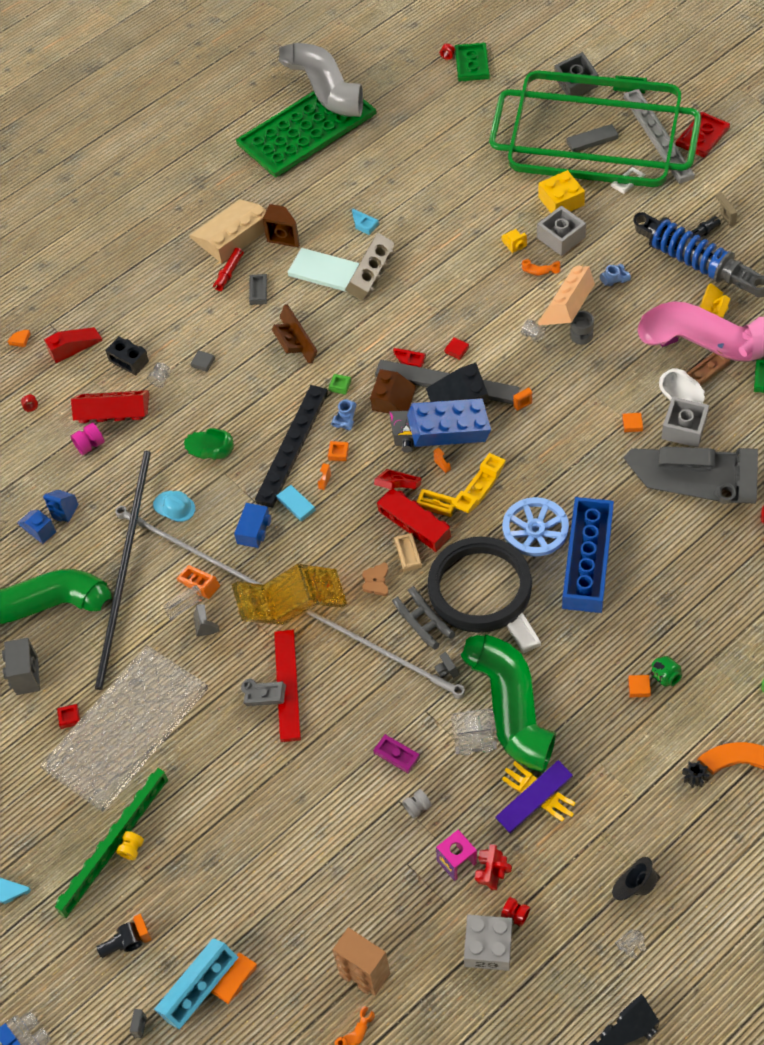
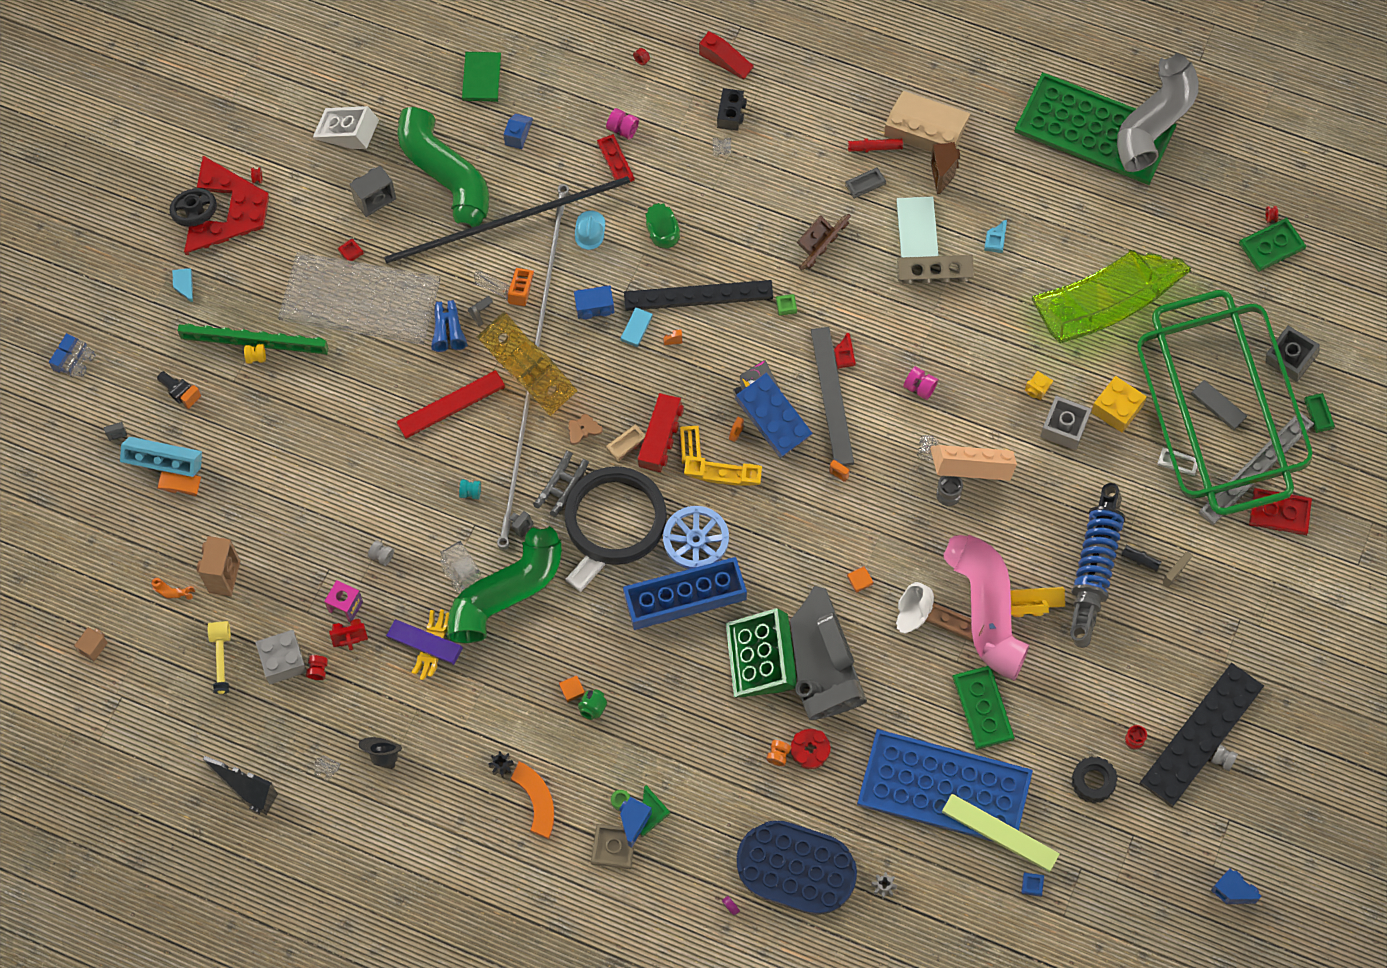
camera: 60 degrees right, 10 degrees up
(19, 338) = (710, 10): orange tile -> none
(61, 504) = (543, 137): blue slope -> none
(110, 405) = (669, 123): red slope -> none
(116, 460) = (614, 158): none -> red tile
(202, 361) = (757, 175): dark grey tile -> none
(207, 657) = (457, 337): none -> blue piece
(263, 693) = (430, 387): dark grey hinge -> none
(338, 451) = (709, 337): orange tile -> none
(345, 415) = (750, 324): medium blue plate -> none
(389, 697) = (470, 489): none -> teal wheel
(391, 392) = (792, 354): reddish brown slope -> none
(393, 479) = (695, 398): red tile -> none
(396, 753) = (421, 518): magenta plate -> none
(431, 998) = (219, 633): none -> light yellow piece
(456, 348) = (876, 388): red tile -> none
(459, 167) = (1108, 295): none -> clear neon green slope
(461, 384) = (820, 411): black slope -> none
(471, 313) = (926, 386): none -> dark pink wheel
(540, 270) = (1009, 422): orange arm -> none
(615, 274) = (1039, 497): medium blue plate -> none
(673, 519) = (761, 654): none -> green slope
(685, 422) = (875, 624): light grey brick -> none

